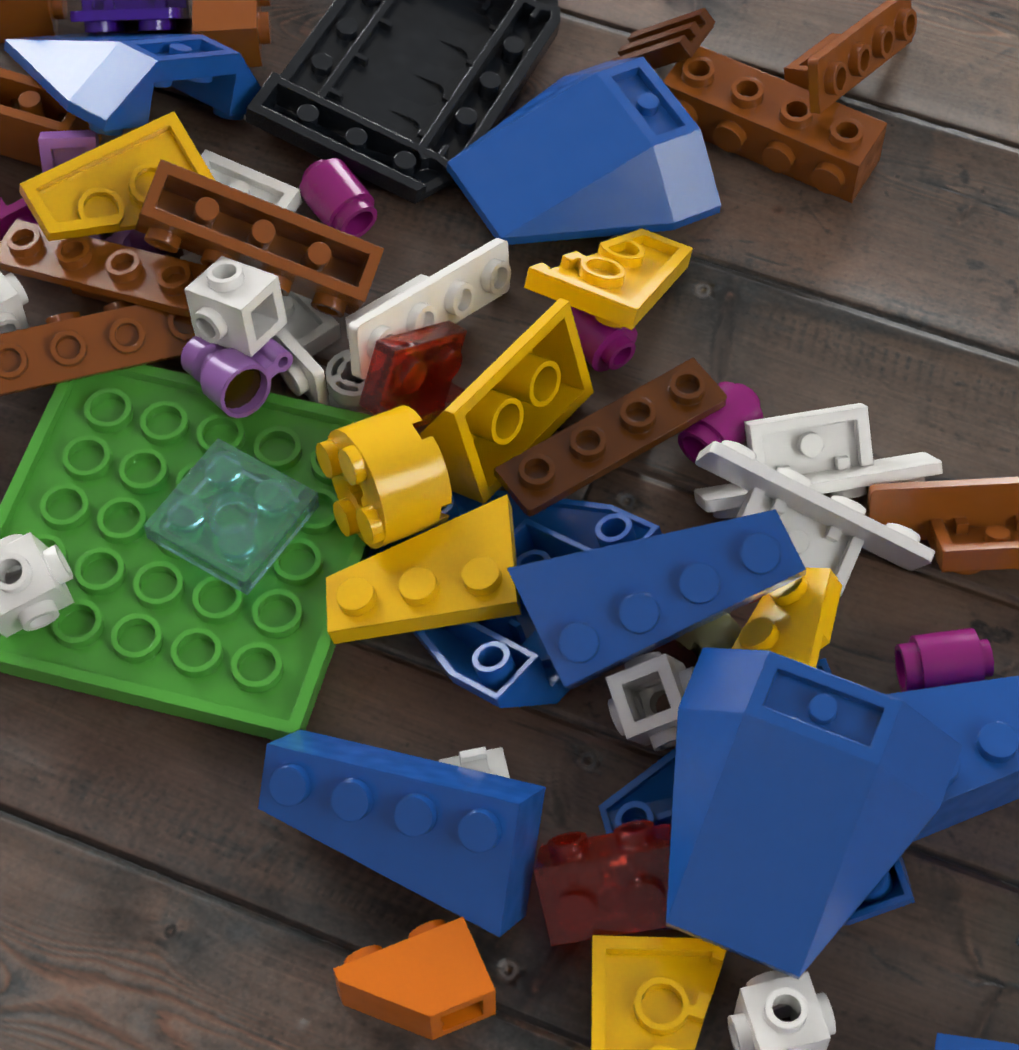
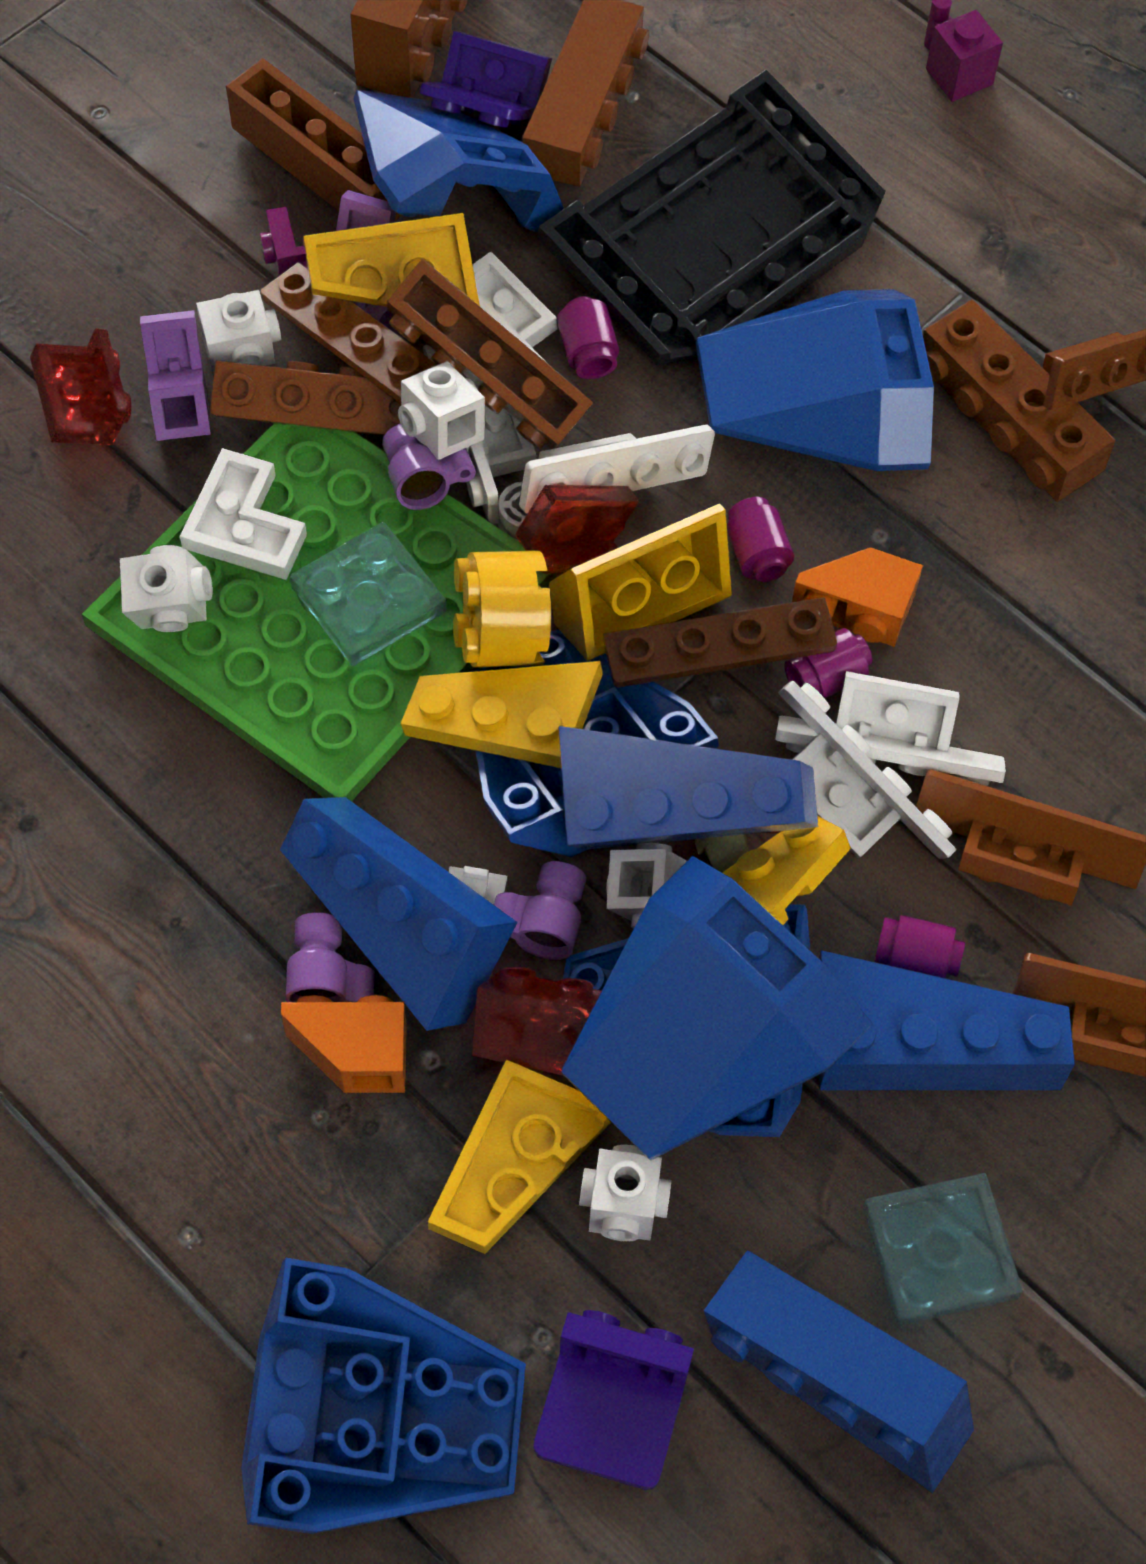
camera: 20 degrees right, 5 degrees up
(59, 497) = (232, 526): none -> white plate
(354, 918) = (319, 969): none -> medium lavender piece
(565, 769) = (550, 920): none -> medium lavender piece
(618, 280) = (797, 502): yellow wing -> none
(669, 40) = (943, 290): reddish brown tile -> none
(726, 338) = (864, 592): none -> orange slope

